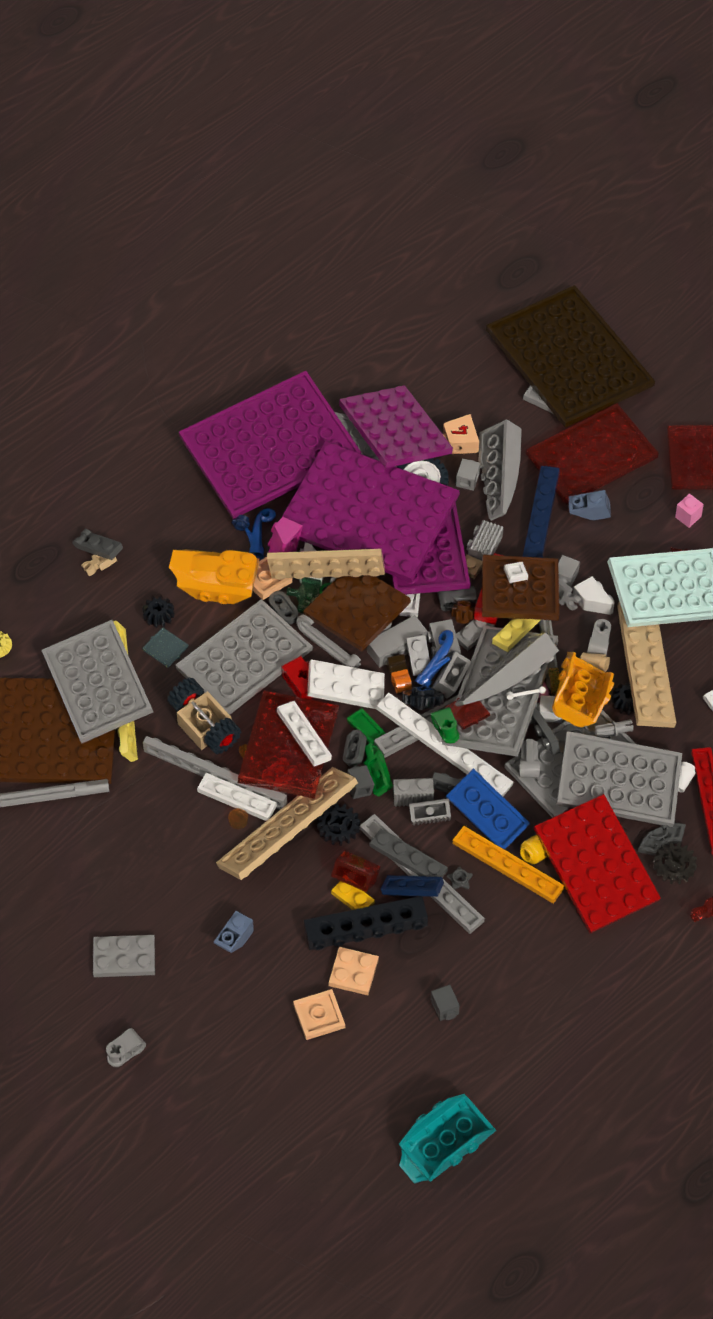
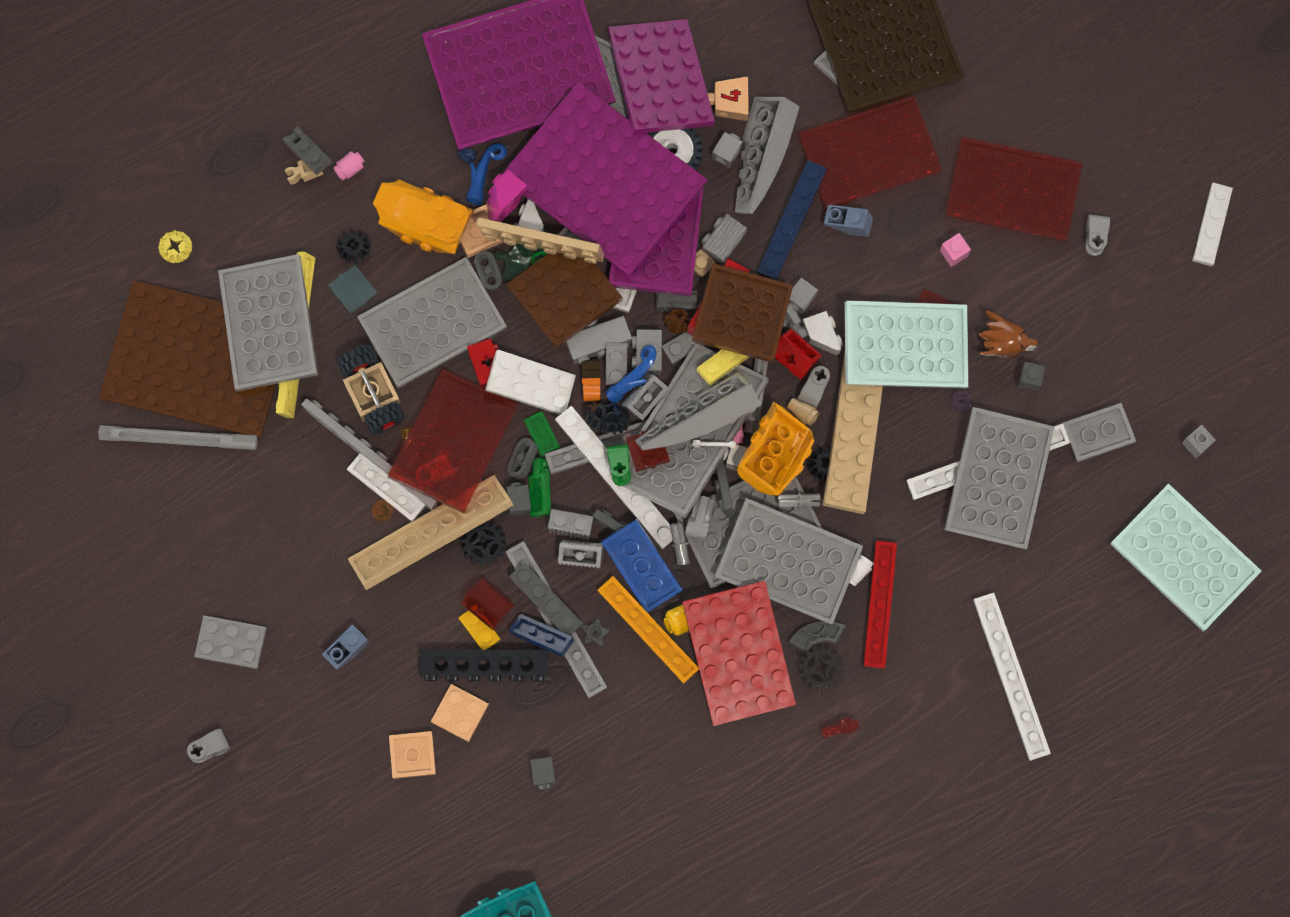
camera: 10 degrees right, 20 degrees up
(138, 550) = (348, 165): none -> bright pink brick
(304, 624) = (542, 353): light grey piece -> none
(304, 733) = (470, 436): white plate -> none
(515, 572) = (741, 295): white tile -> none
(517, 787) = (680, 543): none -> light grey axle
(554, 682) = (751, 428): clear yellow axle -> none
(585, 616) = (796, 354): none -> red brick

